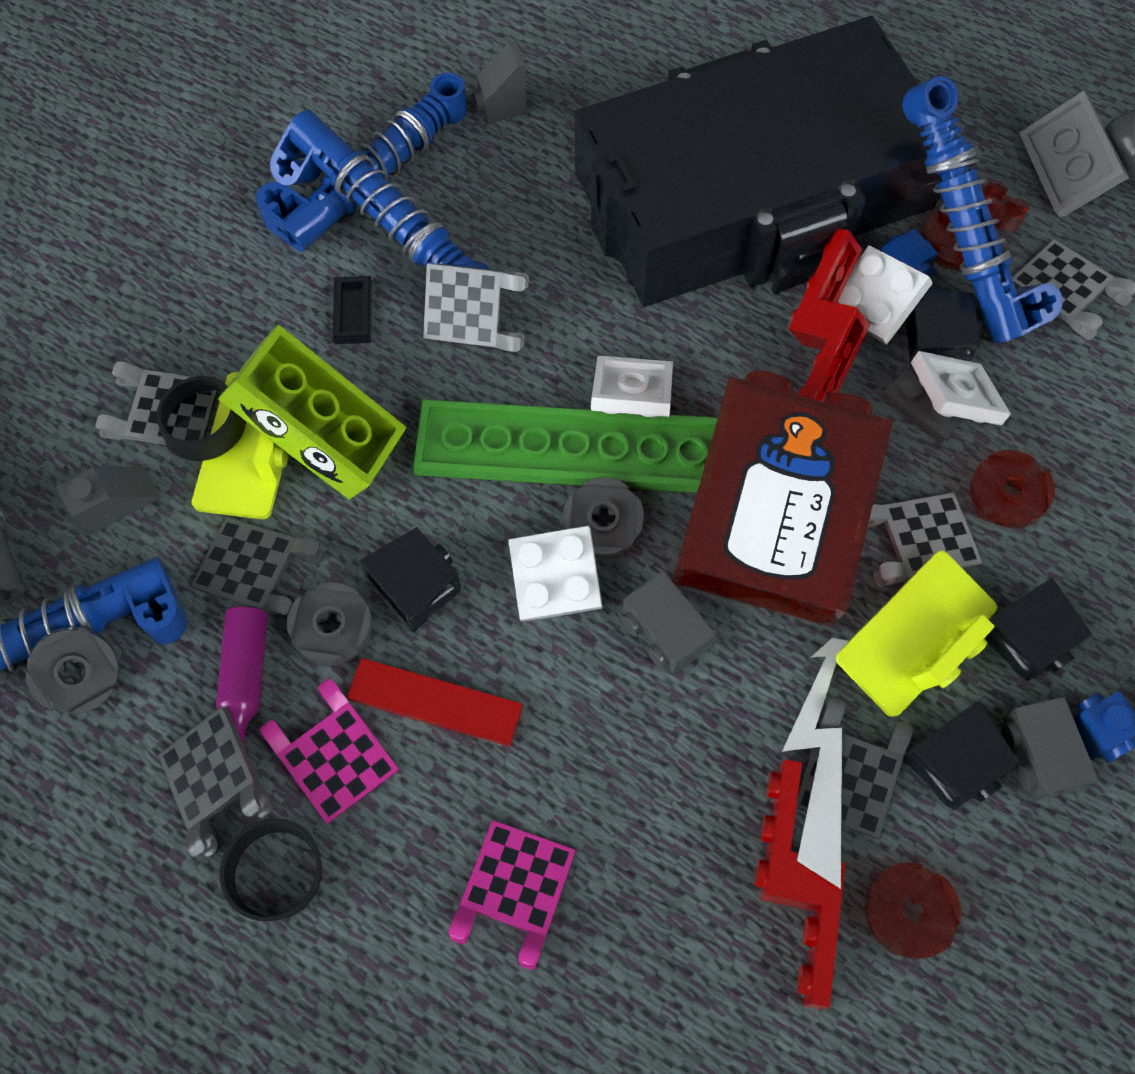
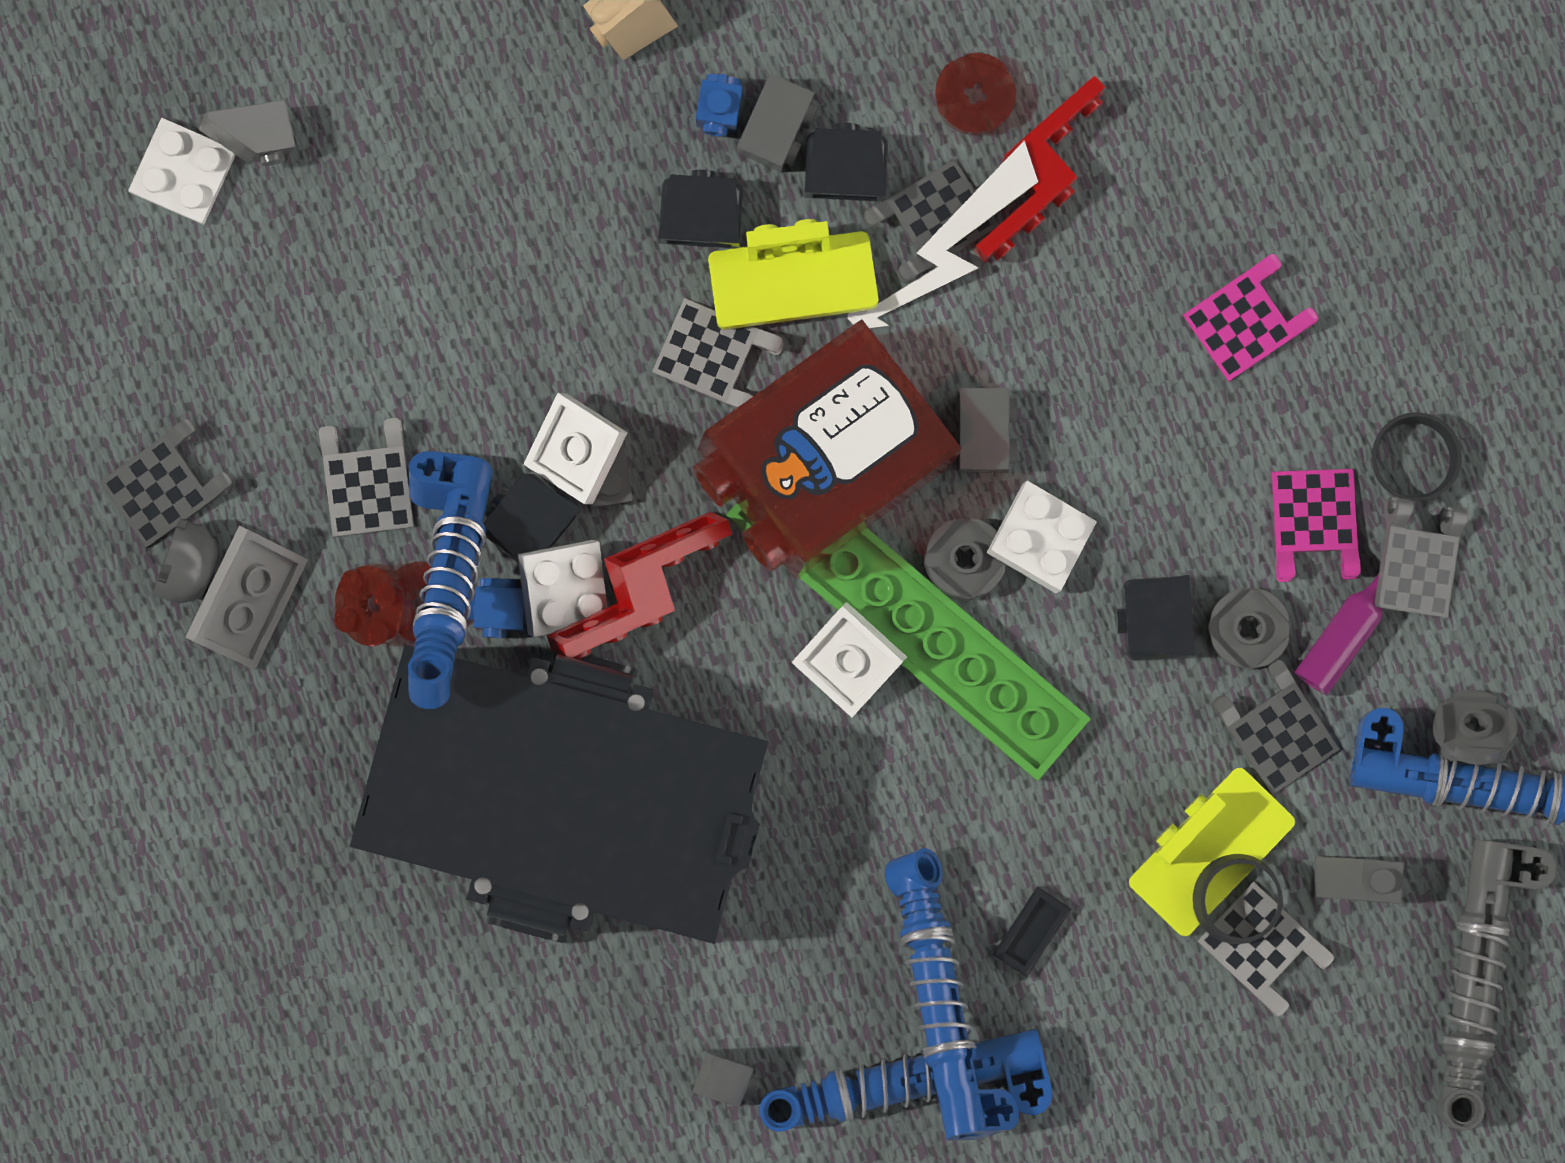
camera: 145 degrees left, 20 degrees up
(313, 413) = (1151, 806): lime brick -> none
(435, 702) = (1209, 504): red tile -> none
(465, 305) = (930, 839): light grey flag -> none
(998, 506) = (605, 313): clear red plate -> none

